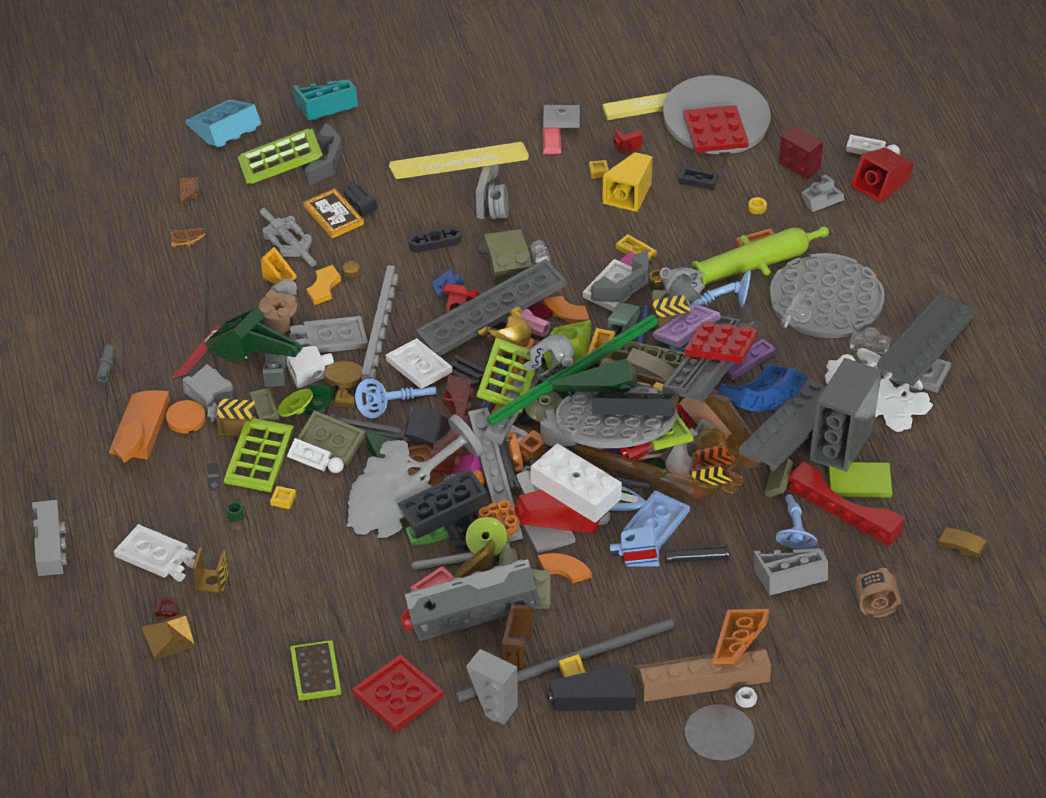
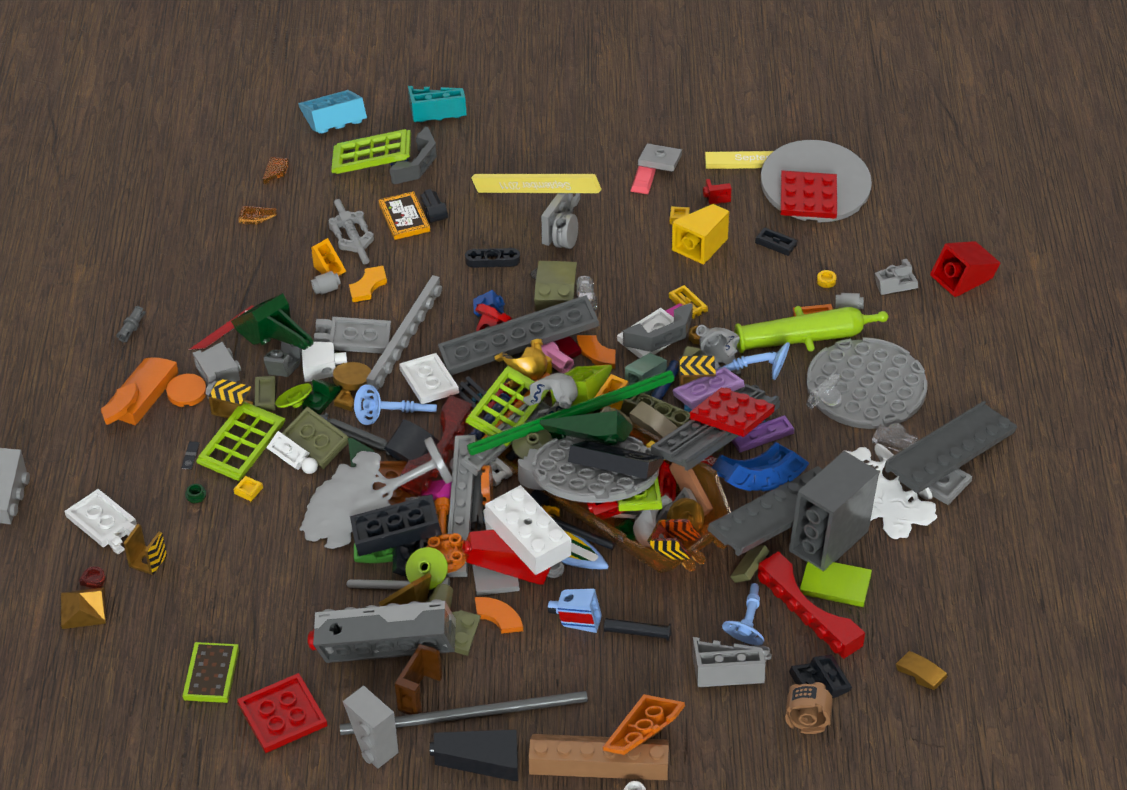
camera: 15 degrees right, 0 degrees up
(279, 311) = (311, 303): medium nougat brick -> none
(351, 269) = (400, 273): pearl gold tile -> none
(439, 576) = (361, 601): coral tile -> none
(530, 448) = (506, 481): orange brick -> none
(571, 666) = (466, 721): yellow tile -> none
(662, 513) = (614, 582): light blue tile -> none
(786, 221) = (849, 300): none -> light grey brick
(800, 152) = (886, 232): dark red brick -> none
(862, 145) = (953, 234): white plate -> none
(874, 559) = (822, 670): none -> black slope

